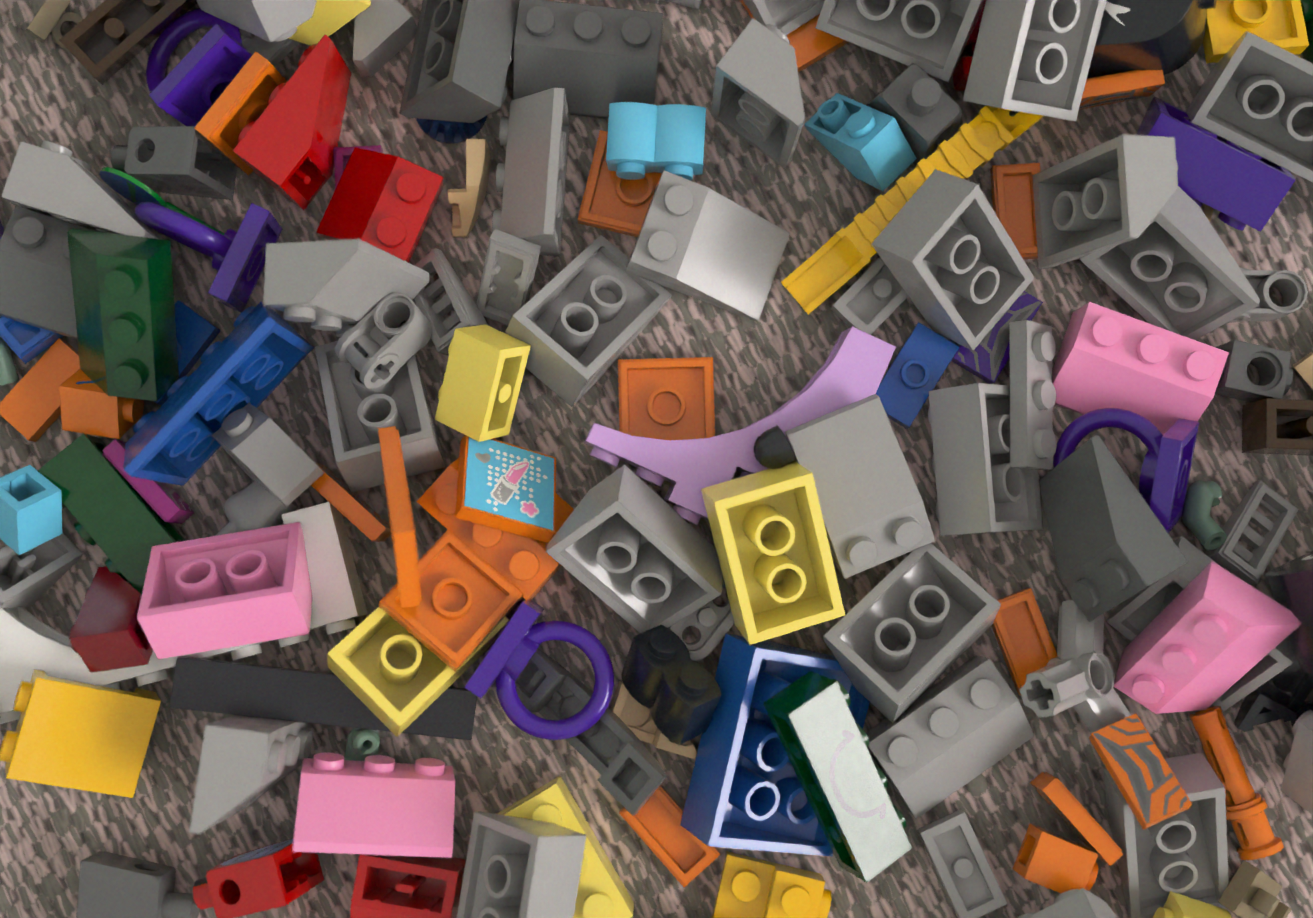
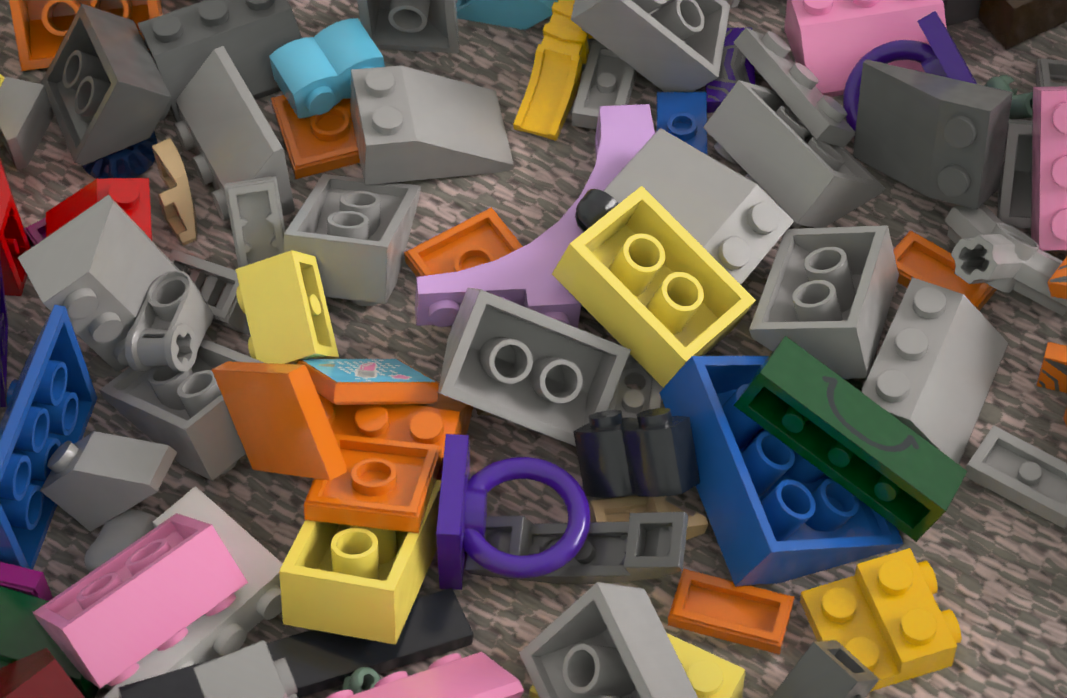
camera: 30 degrees left, 30 degrees down
(351, 506) = (235, 493): orange tile -> none

